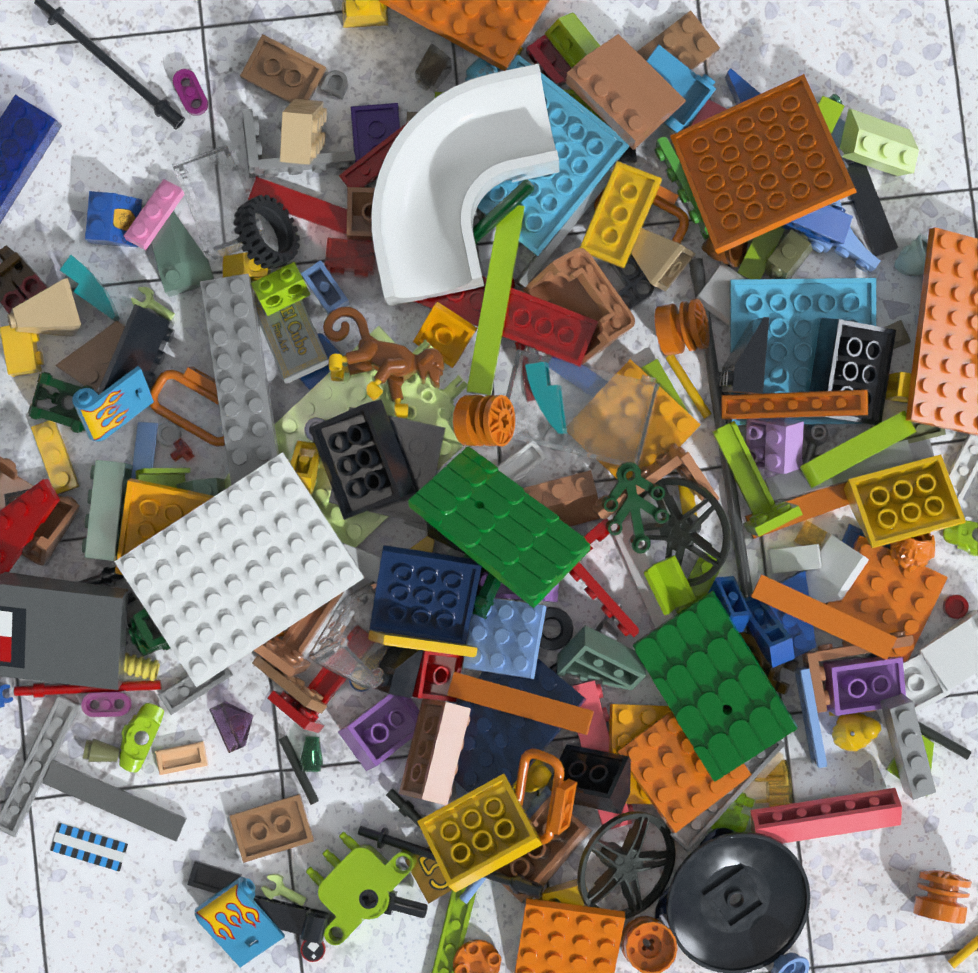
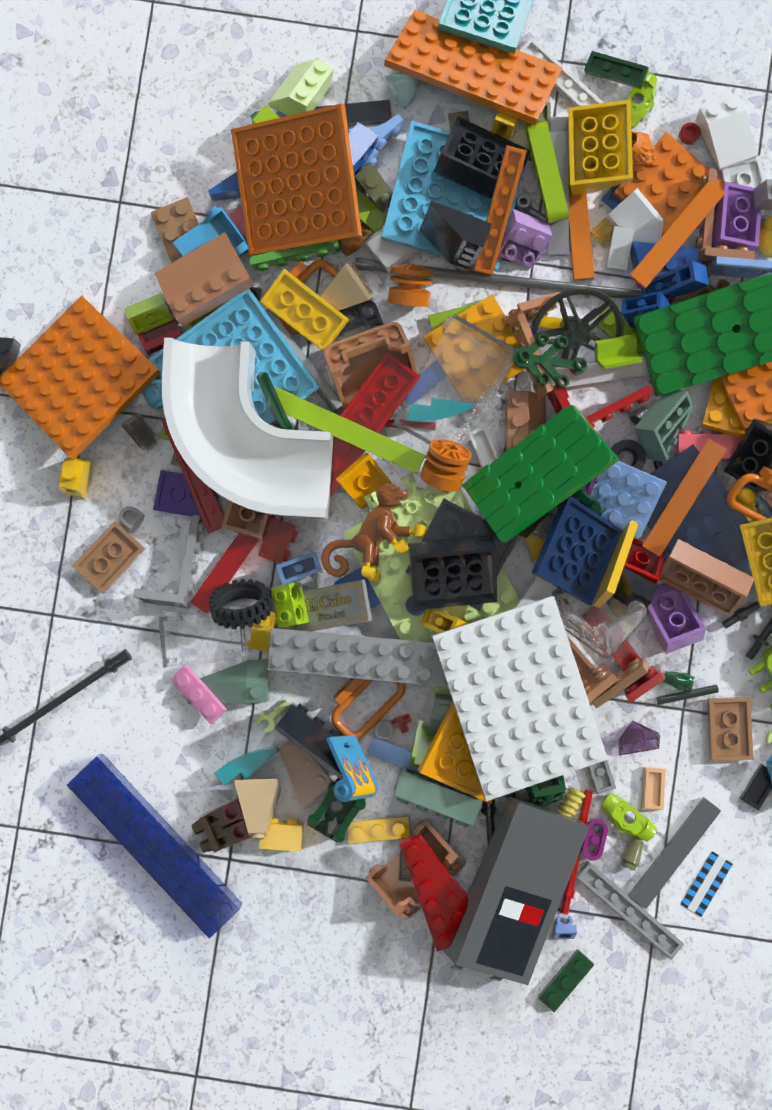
camera: 75 degrees left, 0 degrees up
(110, 218) = (192, 731): blue slope -> none
(190, 93) = (105, 638): magenta plate -> none
(302, 131) = (166, 550): tan brick -> none
(688, 386) = (457, 296): yellow bar -> none
(765, 513) = (583, 260): lime bracket -> none

